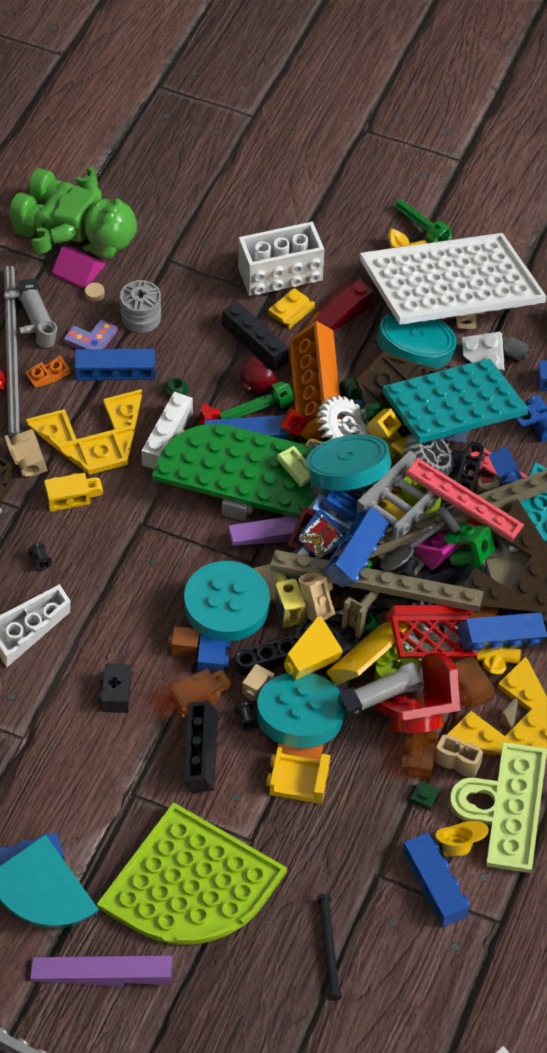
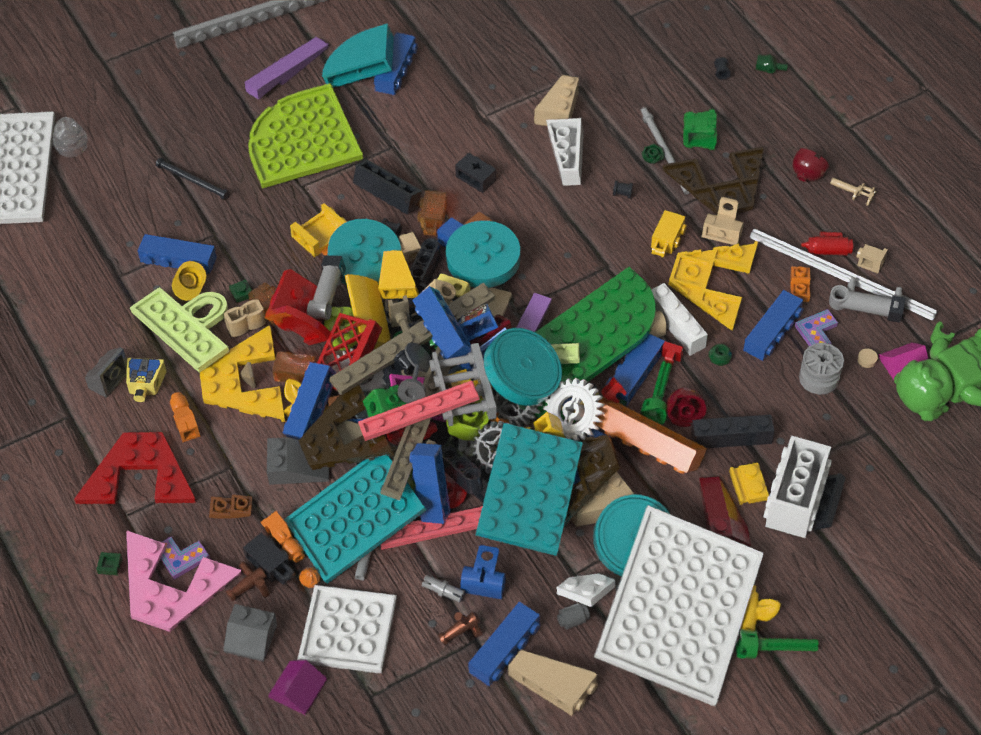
camera: 130 degrees right, 0 degrees up
(349, 389) = (627, 468): dark green piece -> none
(370, 411) = (570, 430): dark green plate -> none

